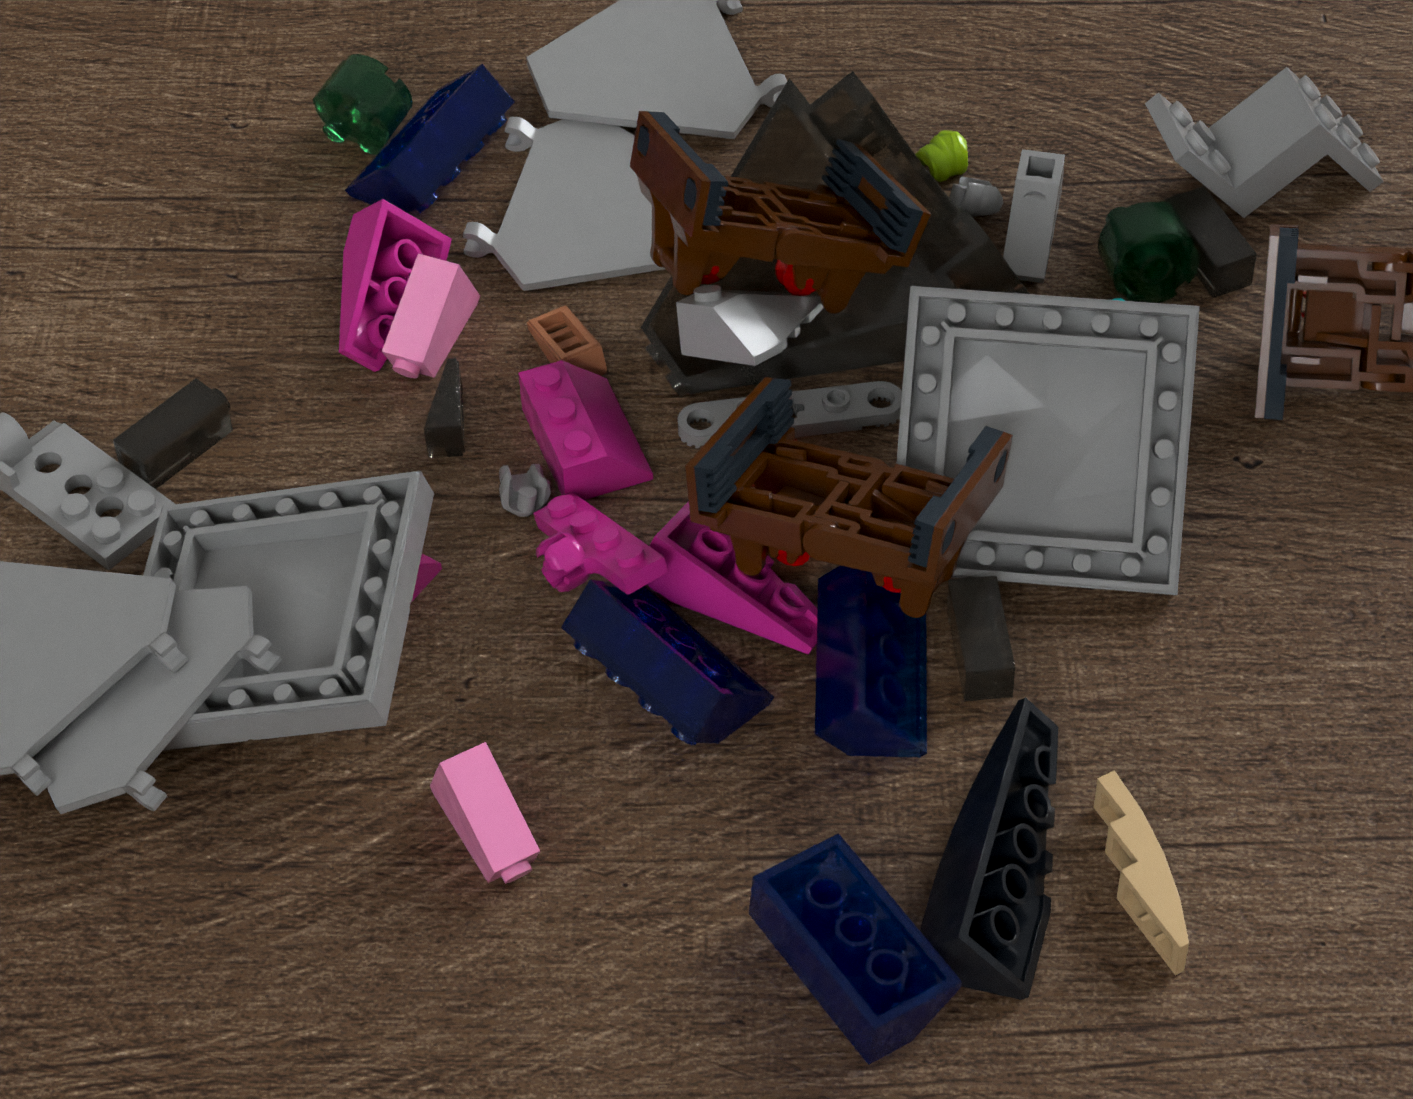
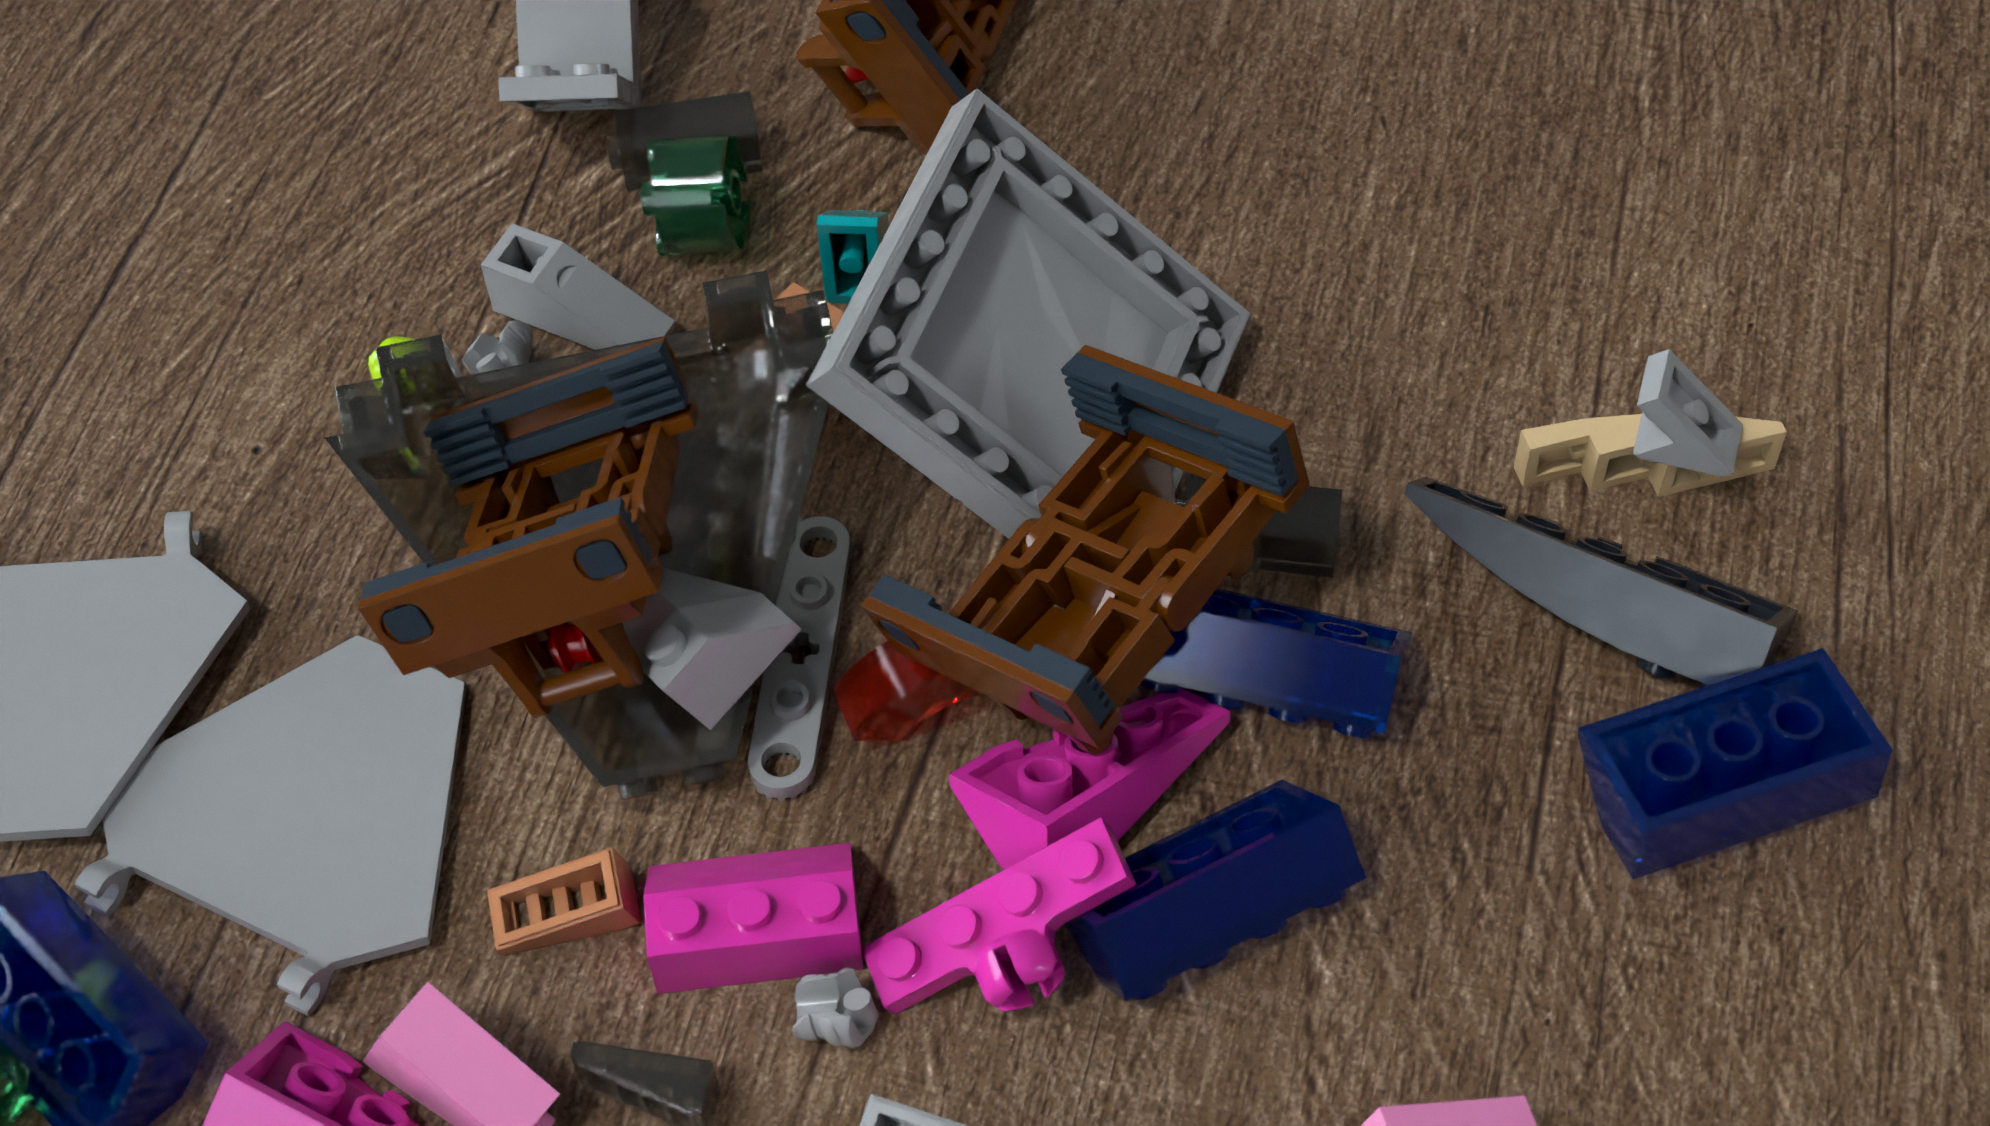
camera: 75 degrees left, 5 degrees up
(1145, 856) = (1684, 420): none -> light grey slope

